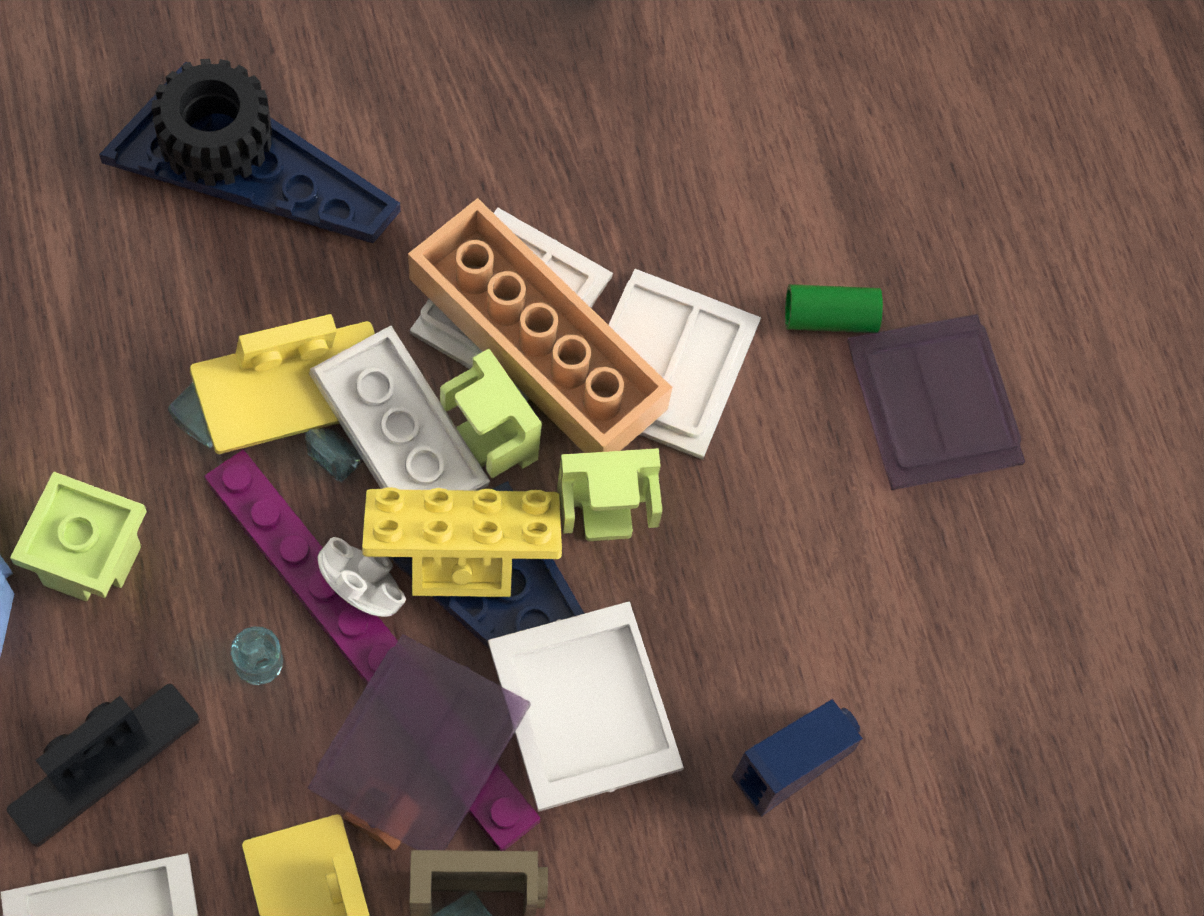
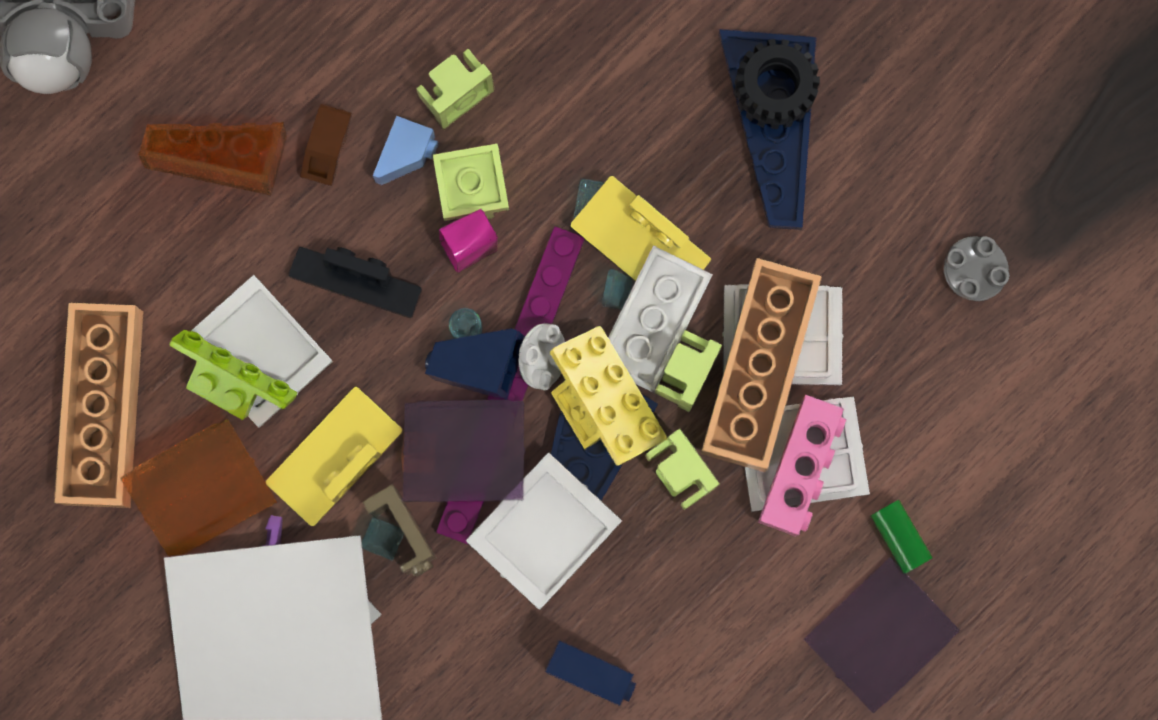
camera: 70 degrees right, 15 degrees up
(155, 576) = (468, 240): none -> dark pink piece
(315, 663) = (477, 362): none -> dark blue slope
(568, 59) = (976, 268): none -> light grey dish
(720, 419) = (775, 510): none -> bright pink brick

